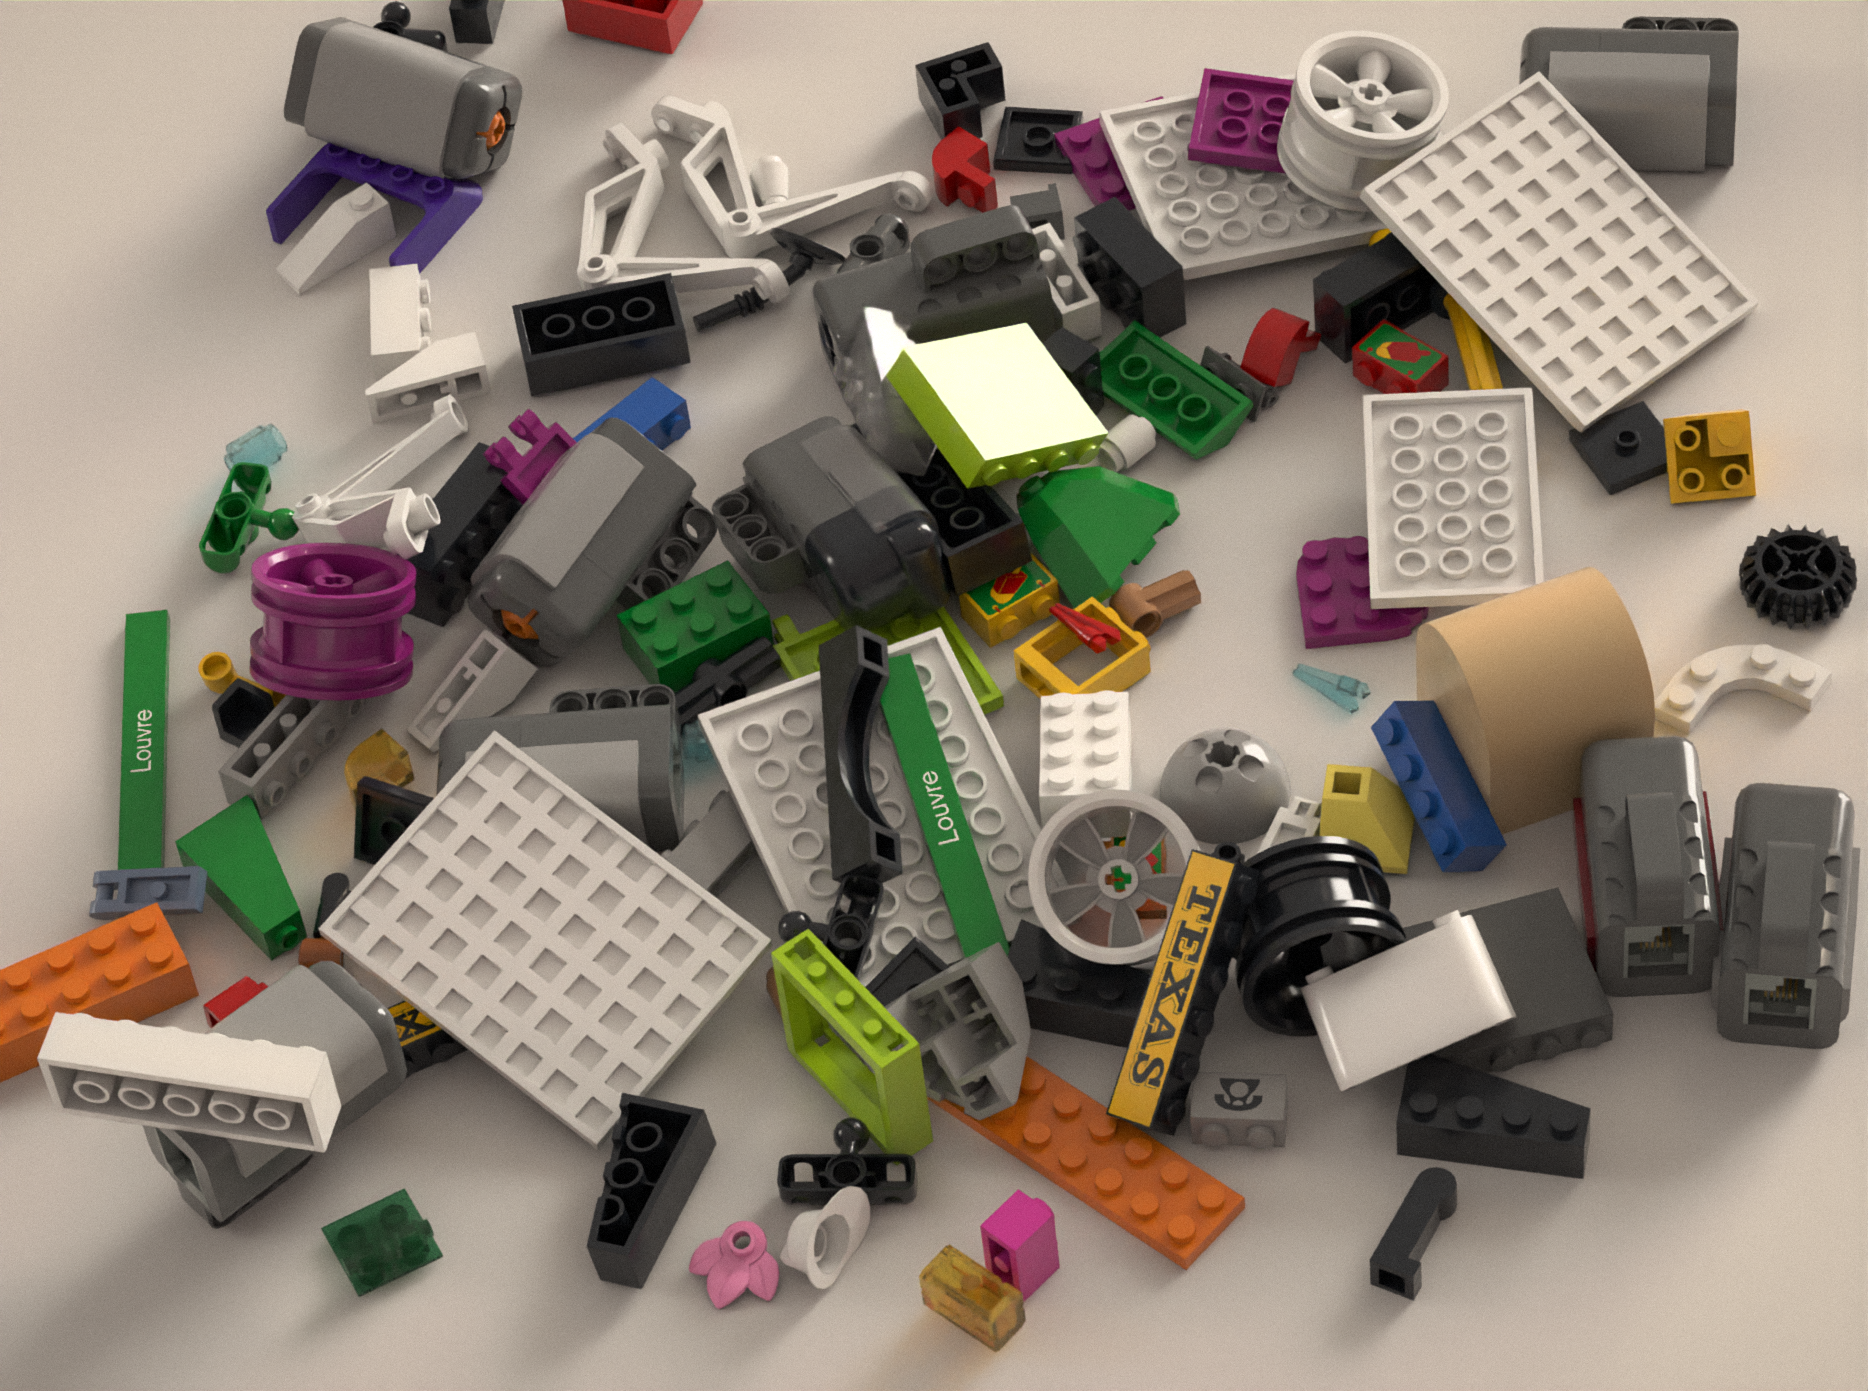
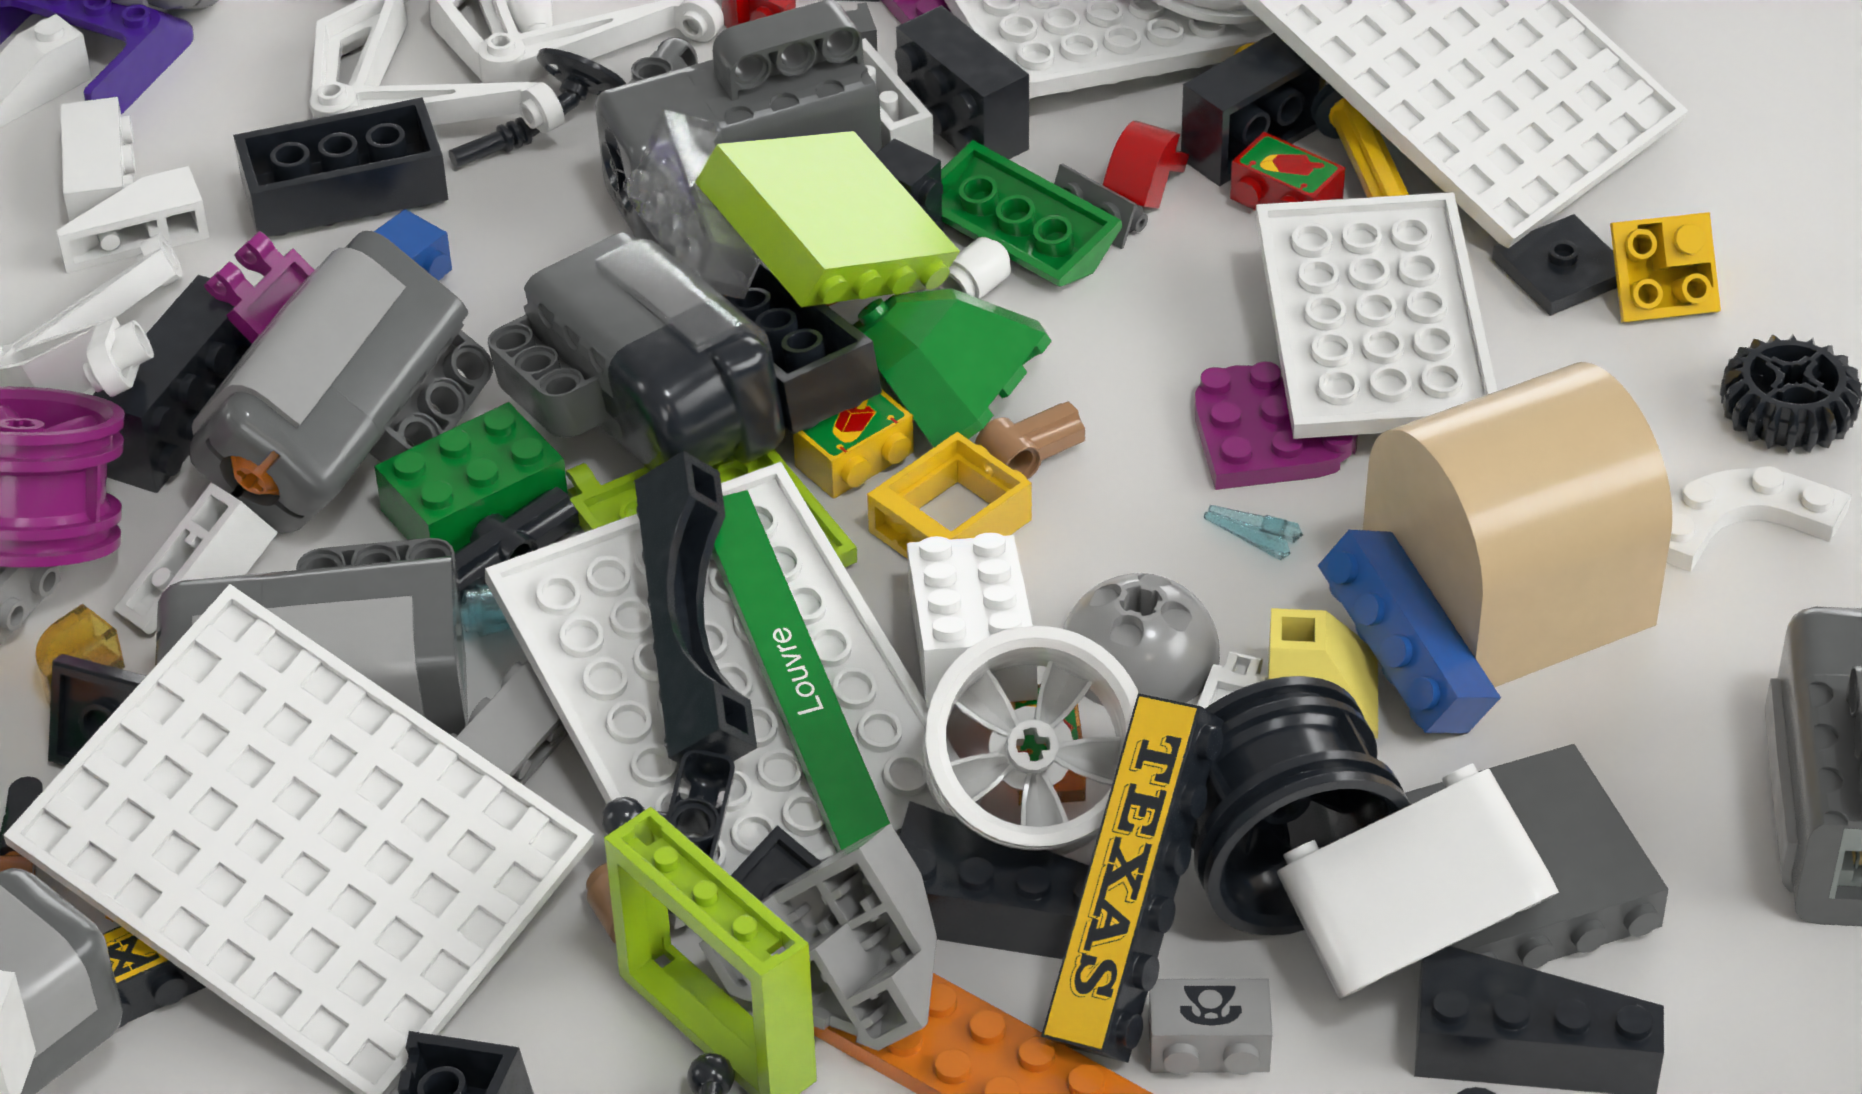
camera: 10 degrees left, 5 degrees down
(1088, 630) = (957, 468): red piece -> none
(1646, 867) = (1683, 716): dark grey piece -> none

